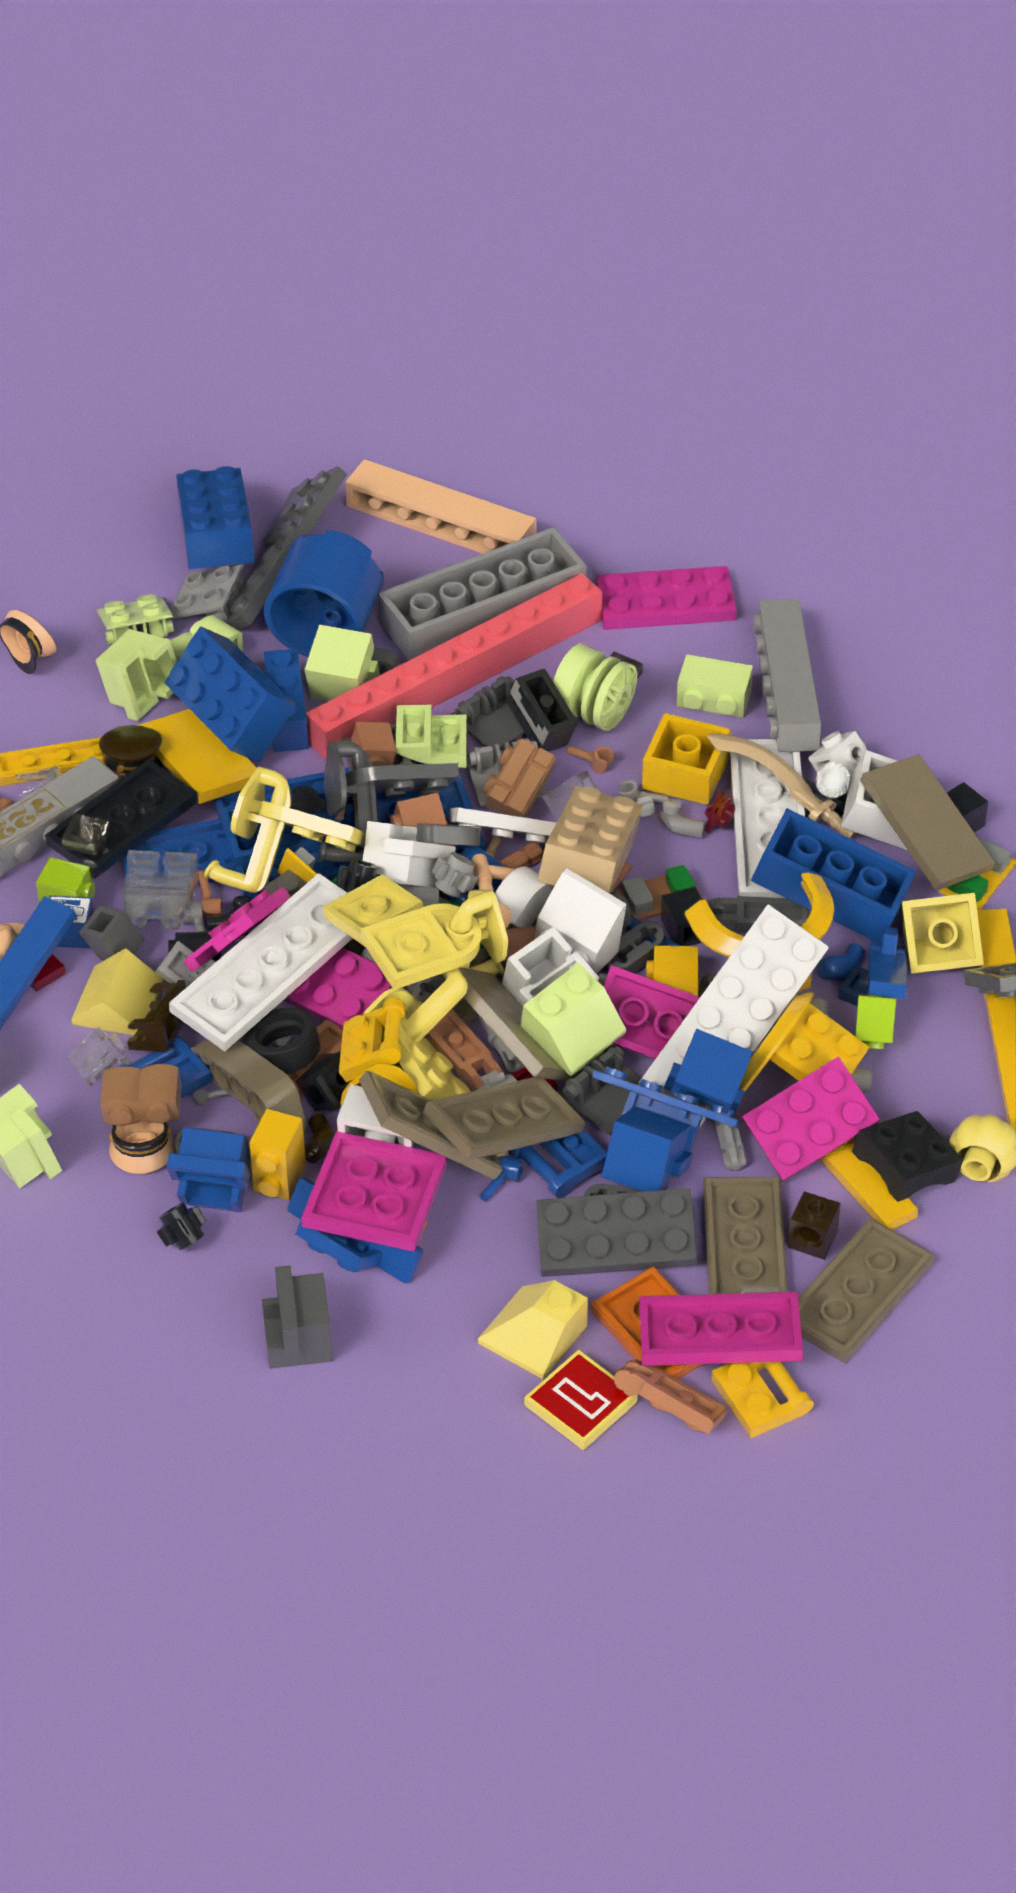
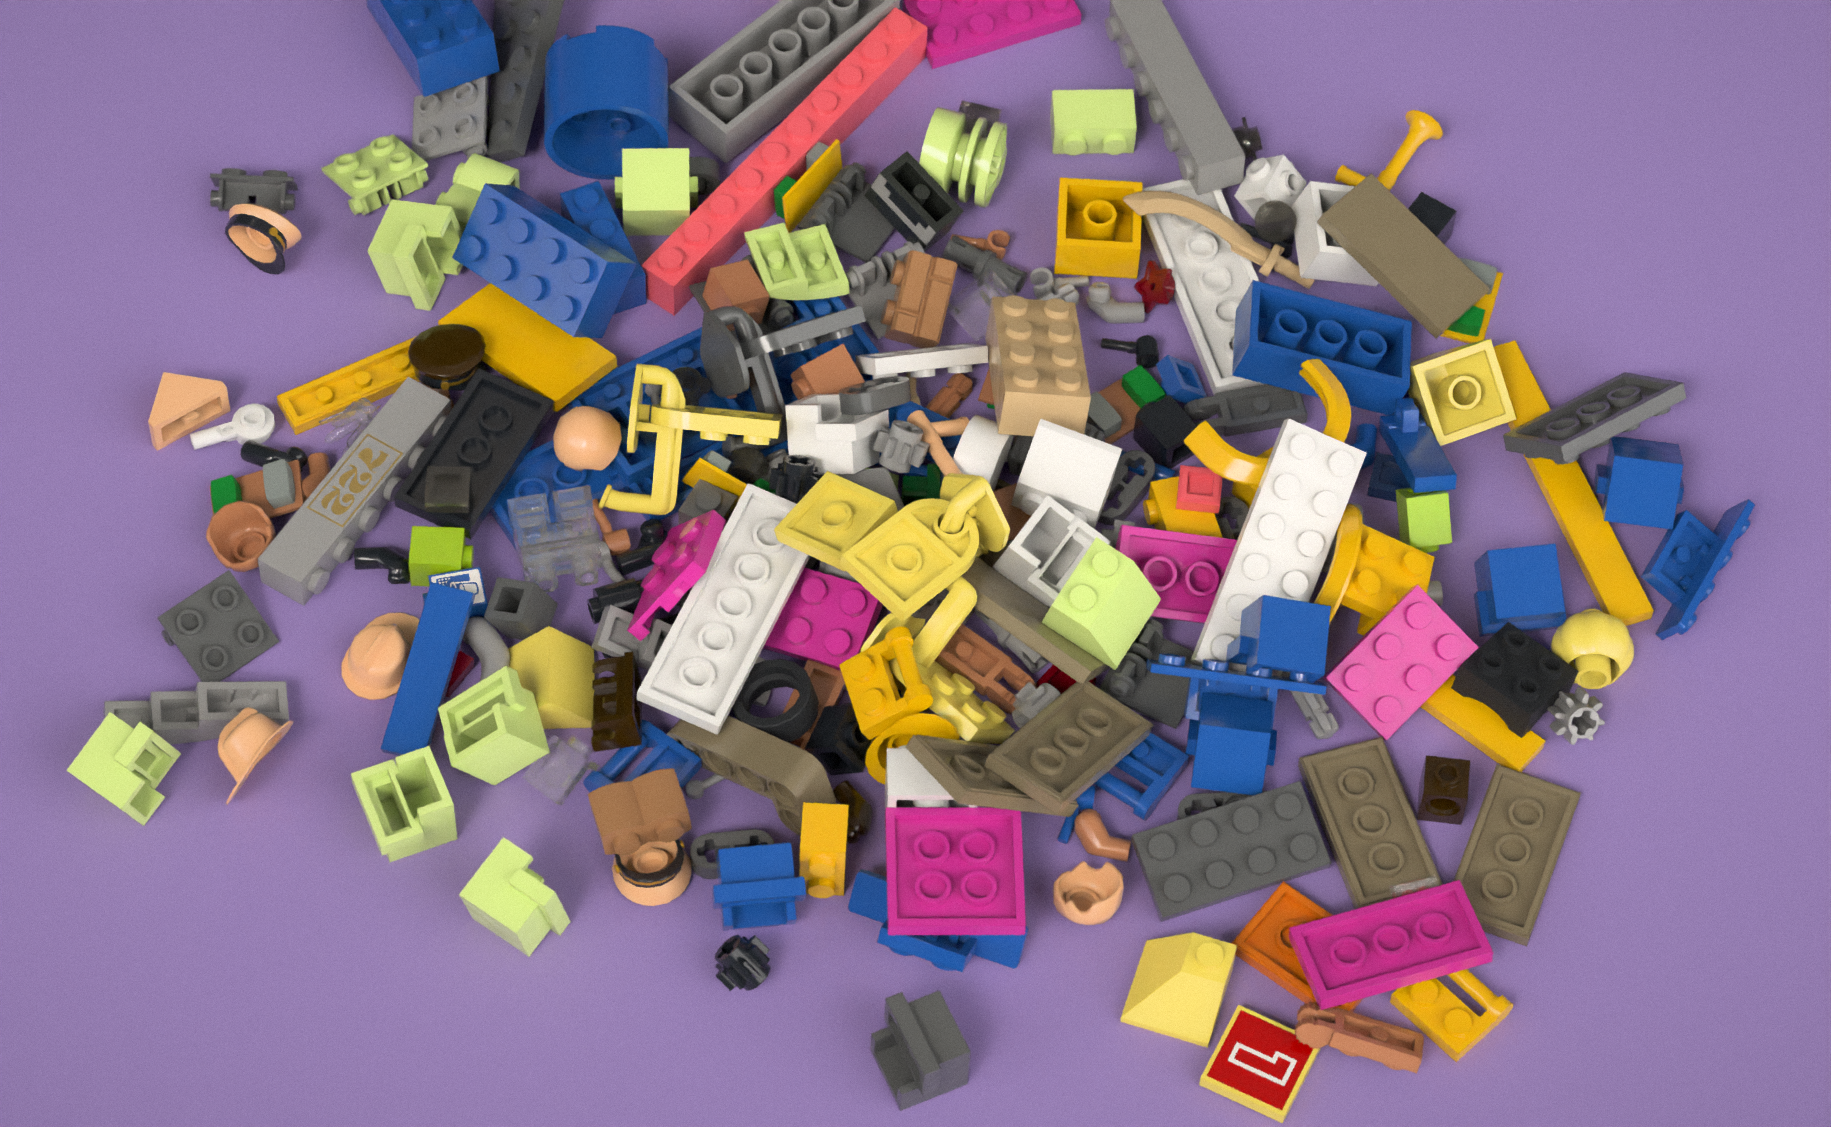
camera: 20 degrees left, 10 degrees up
(23, 882) = (383, 559): none -> black arm
(50, 612) = (237, 187): none -> dark grey hinge
(53, 1013) = (493, 728): none -> yellowish green plate
(80, 964) = (487, 645): none -> light grey arm
(210, 824) = (587, 438): none -> light nougat hair
(329, 865) = (748, 465): none -> clear smoke plate
(452, 690) = (796, 198): none -> yellow piece
(484, 1238) = (1088, 893): none -> light nougat hair
(510, 1201) = (1096, 838): none -> nougat arm
(576, 763) = (979, 261): none -> dark grey pin
(690, 957) = (1198, 489): none -> coral tile
(692, 856) = (1144, 348): none -> black hand
(712, 880) = (1180, 379): none -> blue plate
(836, 720) = (1248, 139): none -> clear smoke plate
(937, 1087) = (1520, 589): none -> blue plate
(946, 1184) = (1576, 715): none -> light grey gear
(984, 741) = (1421, 128): none -> yellow piece

